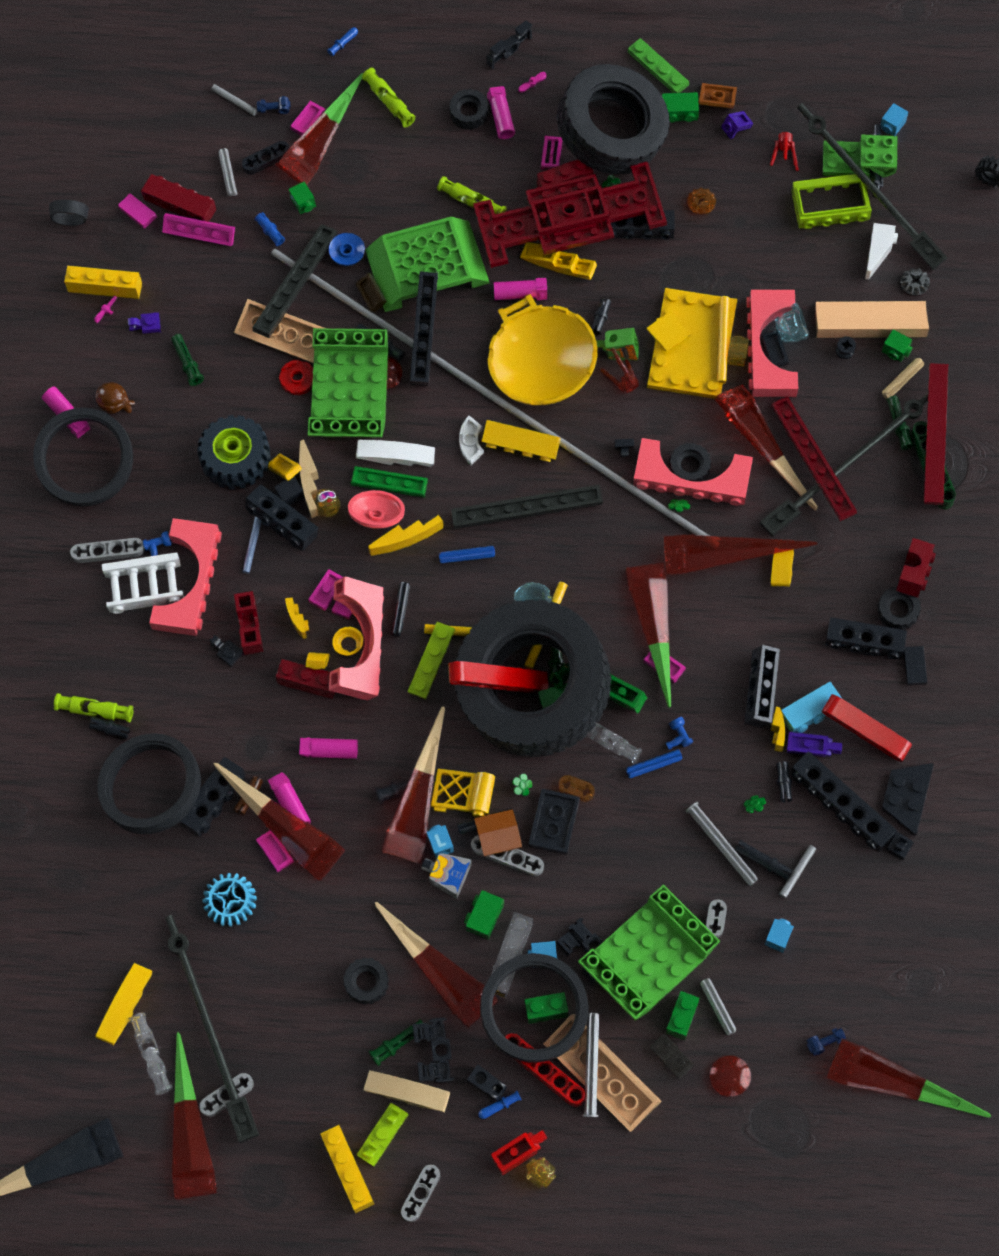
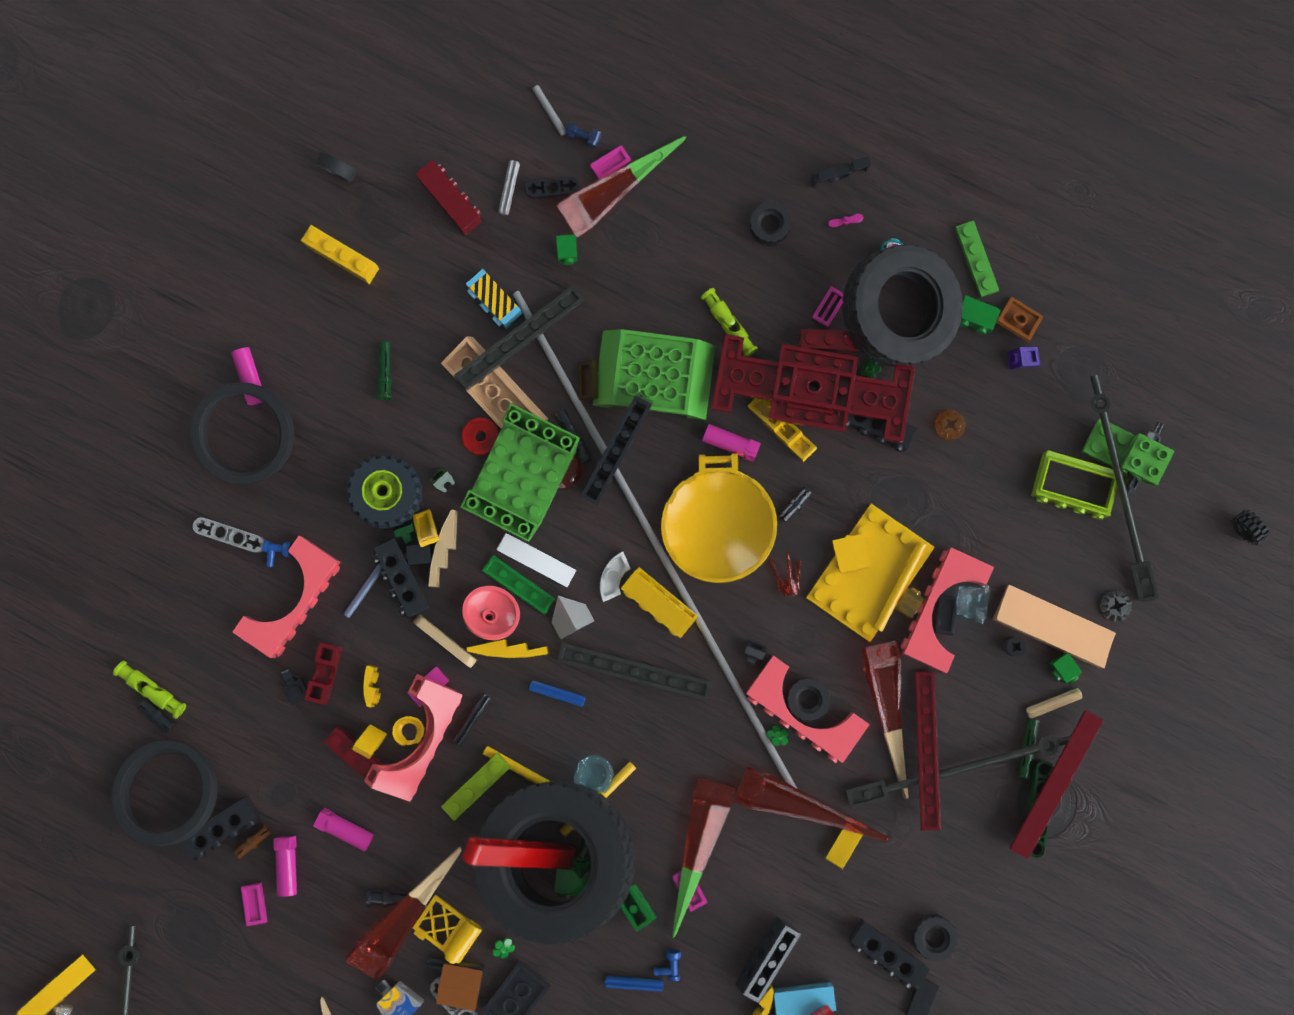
camera: 25 degrees right, 15 degrees up
(105, 309) = (331, 282): dark pink piece -> none
(112, 398) = (298, 381): reddish brown hat -> none
(132, 569) = (242, 567): white fence -> none
(137, 211) = (405, 190): dark pink tile -> none
(148, 323) = (365, 315): dark purple plate -> none
(198, 229) = (454, 238): dark pink plate -> none
(244, 905) = (177, 926): medium azure gear -> none
(257, 262) = (493, 299): none -> brick
(267, 479) = (405, 531): none -> dark green tile
(269, 229) = (522, 267): blue pin -> none
(277, 424) = (440, 478): none -> tile
(306, 843) = (280, 914): clear red plate -> none
(324, 591) = (407, 672): dark pink plate -> none
(327, 502) = (449, 582): clear yellow head -> none
(339, 44) = (676, 95): blue piece -> none
(343, 243) = (581, 315): blue dish -> none
(345, 553) = (444, 640): none -> tan beam
(389, 98) = (699, 180): lime piece -> none
(440, 840) = (404, 968): dark azure brick -> none
(447, 487) = (570, 616): none -> light grey slope
(501, 112) = (799, 241): dark pink piece -> none
(578, 784) = (548, 977): clear orange beam -> none
(618, 745) = (609, 951): clear piece -> none
(624, 343) = (804, 550): bright green torso -> none
(785, 143) = (1062, 401): red plant -> none
(881, 243) = (1102, 552): white slope -> none
(894, 120) = (1180, 424): dark azure brick -> none
(913, 578) = (981, 898): dark red arch -> none

